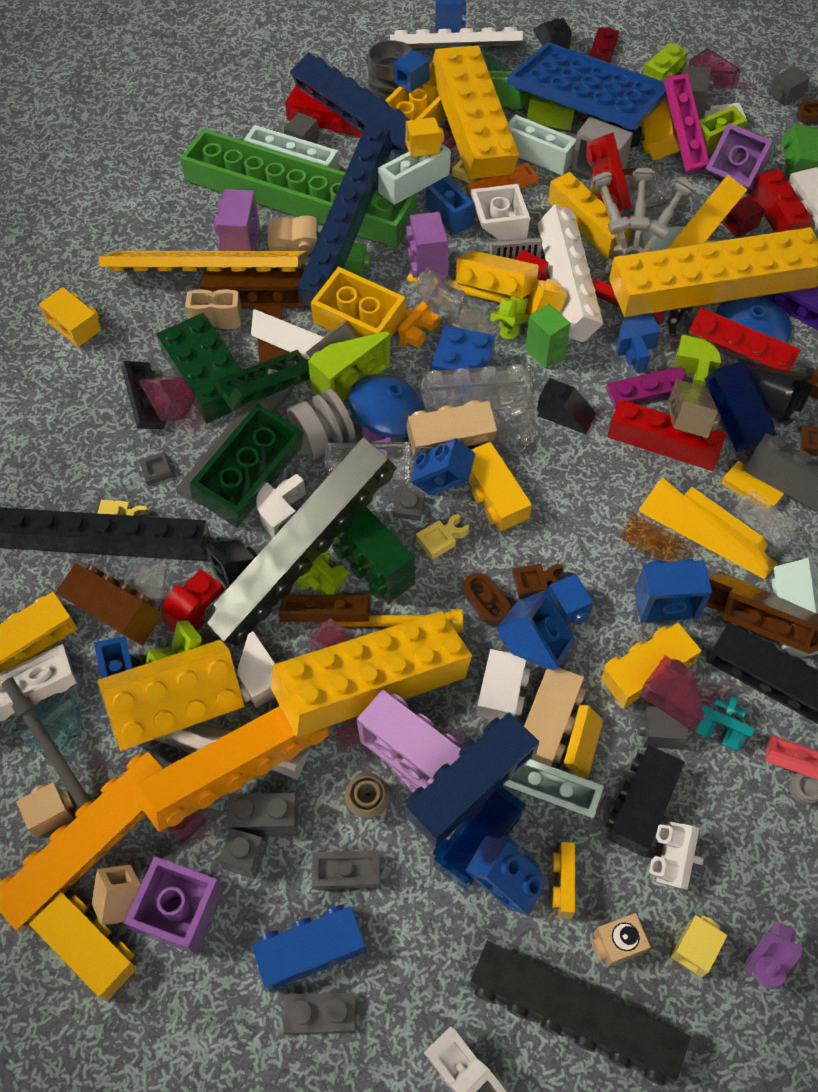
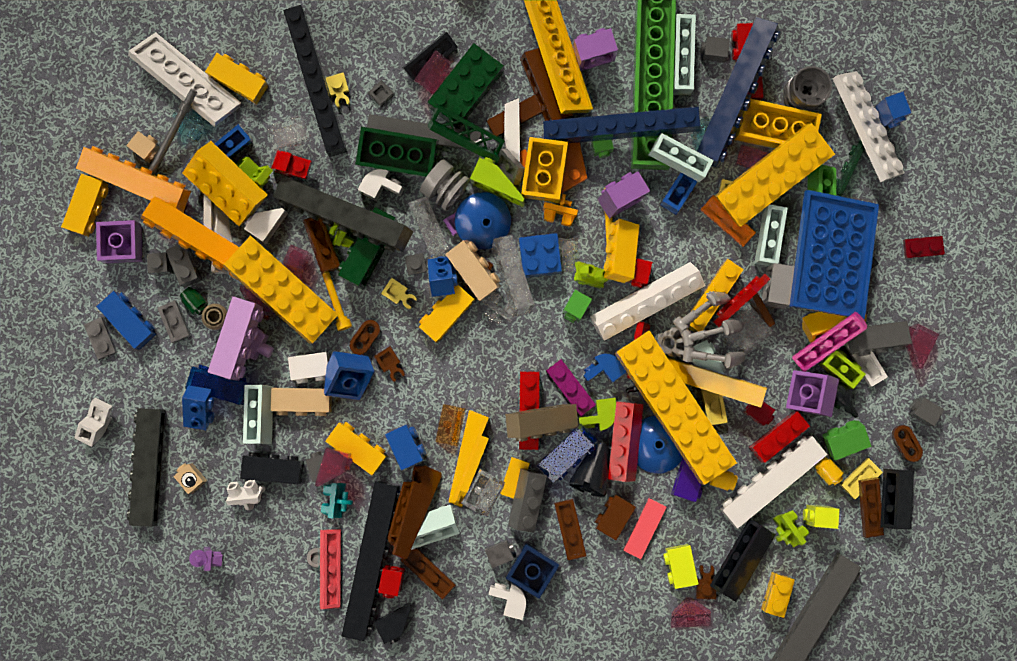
camera: 70 degrees right, 25 degrees up
(110, 603) = (266, 119): reddish brown brick -> none
(114, 893) = (112, 208): tan brick -> none
(220, 307) = (516, 71): tan brick -> none
(229, 559) = (326, 176): black slope -> none
(293, 234) = (608, 91): tan brick -> none
(327, 824) = (193, 301): none -> dark green brick
(411, 71) = (797, 111): blue brick -> none
(423, 137) = (700, 154): yellow brick -> none
(439, 291) = (587, 218): clear brick -> none
(471, 779) = (216, 372): dark blue brick -> none
(502, 211) = (684, 231): white slope -> none
(513, 248) = (660, 254): light grey panel -> none
(546, 293) = (611, 294): yellow brick -> none
(555, 32) = (913, 202): black slope -> none
(564, 895) = (203, 441): yellow plate -> none
(565, 406) = (527, 338): black slope -> none
(571, 599) = (381, 388): blue brick -> none
(583, 741) = (294, 424): yellow tile -> none
(666, 62) = (905, 305): lime brick -> none
(699, 945) = (203, 519): light yellow brick -> none

